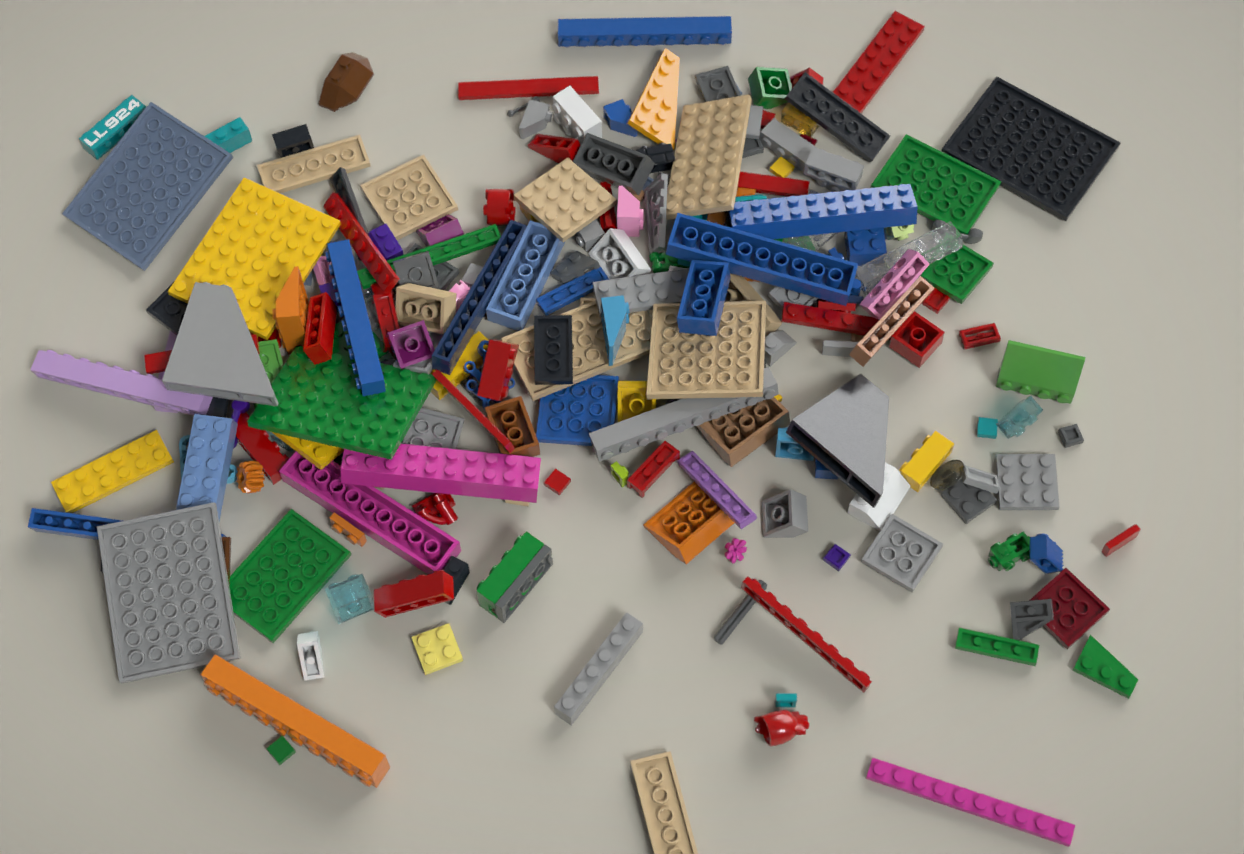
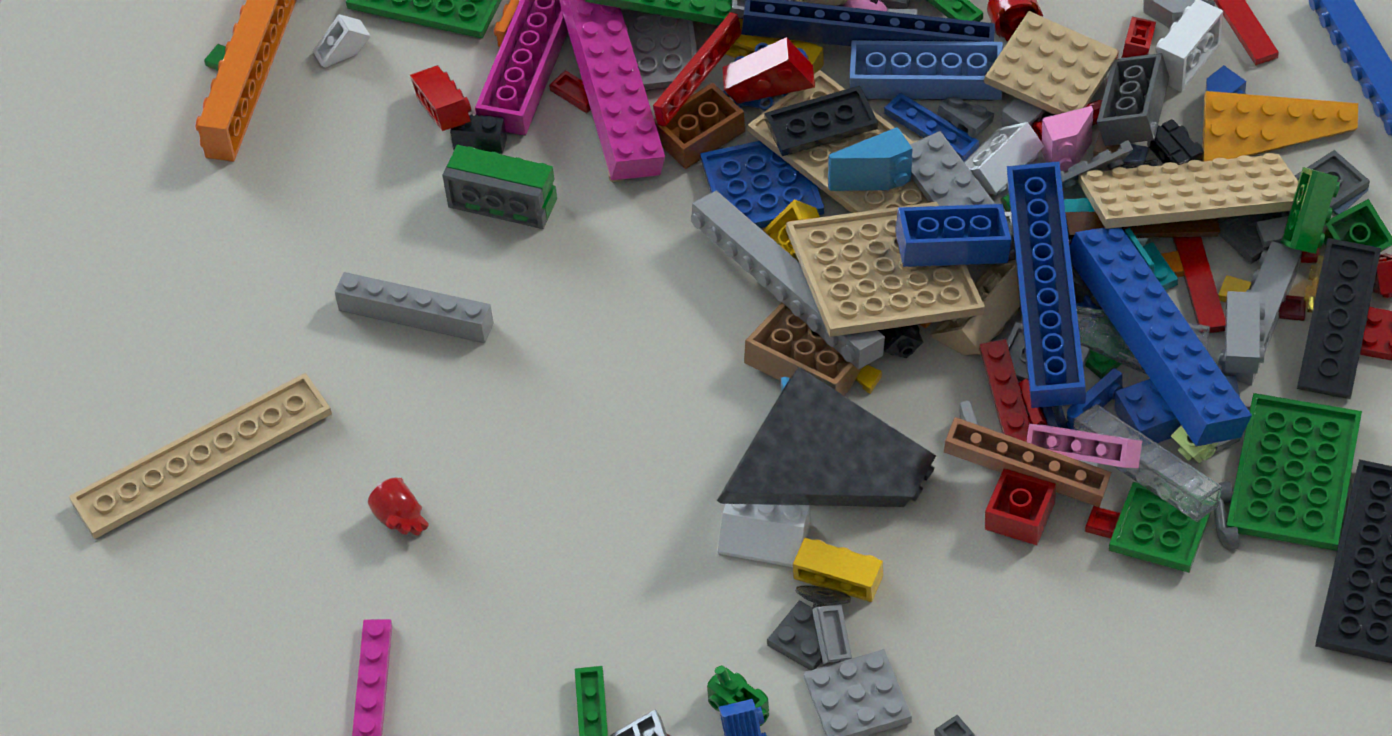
camera: 75 degrees right, 10 degrees down
(350, 598) = (416, 44): clear light blue brick -> none
(437, 649) = (391, 154): light yellow plate -> none
(444, 508) = (565, 103): red plant -> none
(557, 482) = (653, 196): red tile -> none
(620, 473) = (685, 250): lime plate -> none
(653, 468) = (705, 280): red container -> none
(688, 523) = (650, 344): orange slope -> none
(717, 490) = (691, 344): medium lavender tile -> none
(735, 550) = (625, 398): dark pink plant -> none
(736, 617) = (544, 430): dark grey axle -> none
(760, 98) = (1310, 210): none -> green slope
(777, 345) = (944, 357): light grey slope -> none
(785, 515) = (695, 438): light grey slope -> none
(786, 700) = (436, 506): teal tile -> none
(811, 638) = (527, 506): red plate -> none
(836, 557) = (660, 511): dark purple tile -> none
(902, 553) = (690, 578): light grey plate -> none
(985, 338) = (1081, 603): red tile -> none
(987, 428) = (923, 631): teal tile -> none
(1019, 417) = (947, 656): clear light blue brick -> none
(1040, 372) = (1021, 658): bright green slope -> none

